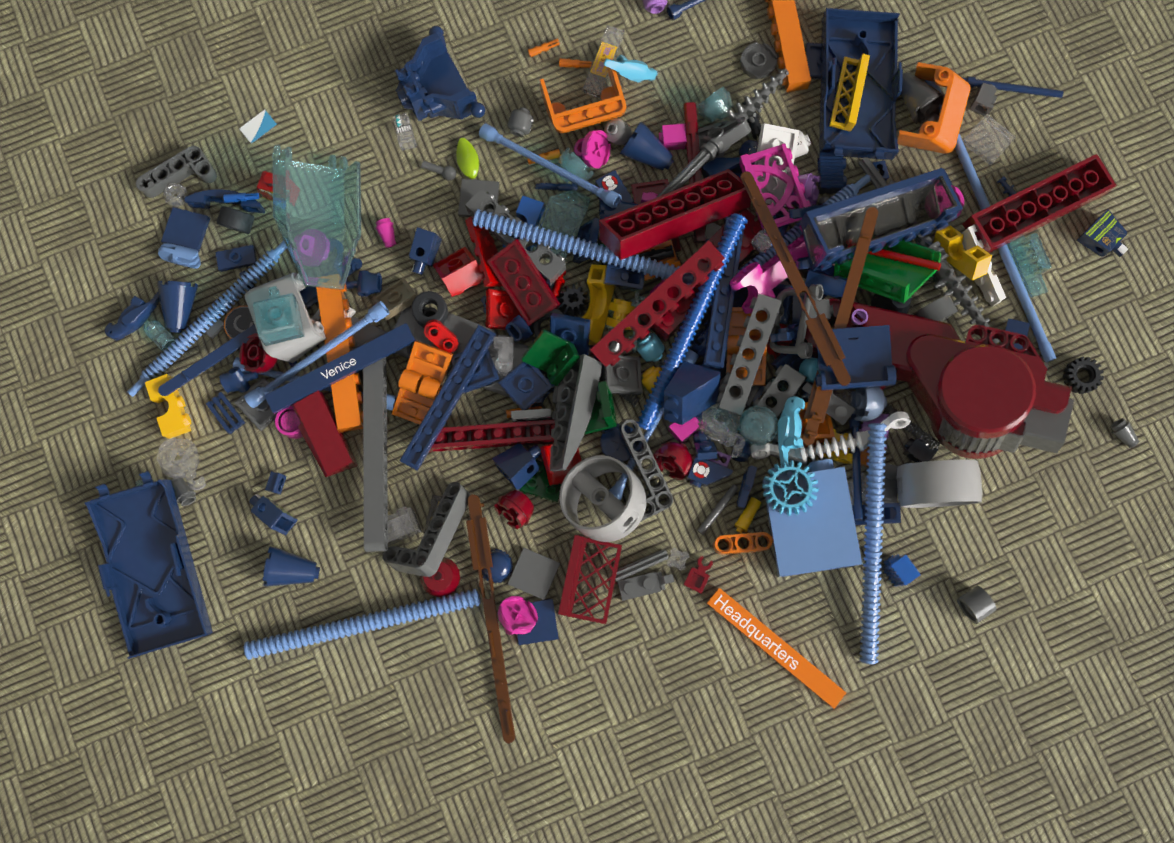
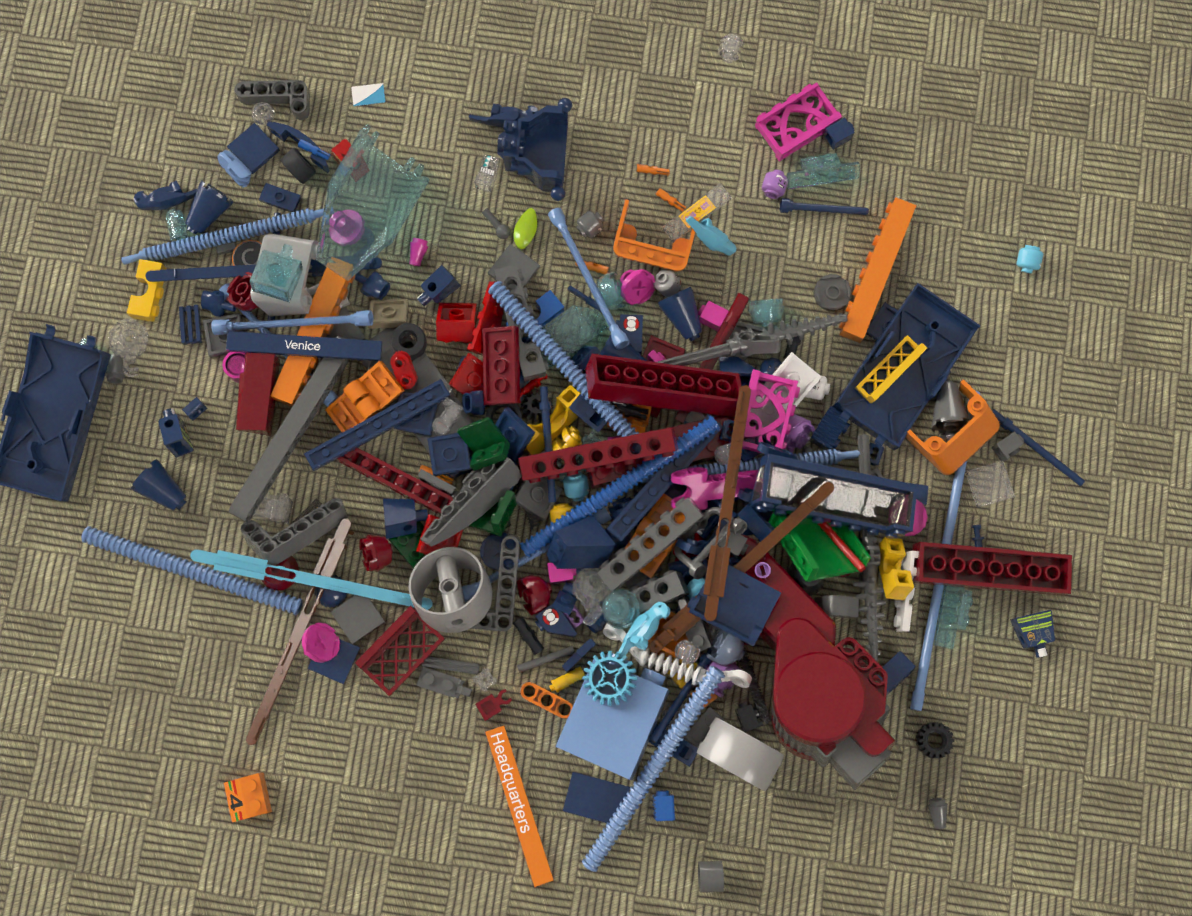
camera: 25 degrees right, 0 degrees up
(386, 76) = (500, 113): none -> dark blue animal
(420, 584) = (256, 567): none -> medium azure piece
(537, 790) = (247, 797): none -> orange slope
(583, 294) = (545, 407): none -> dark blue bar
(691, 498) = (528, 635): none -> black pin
(749, 226) = (723, 436): none -> dark blue piece
(835, 600) = (593, 797): none -> dark blue tile
(838, 426) = (687, 652): none -> clear piece

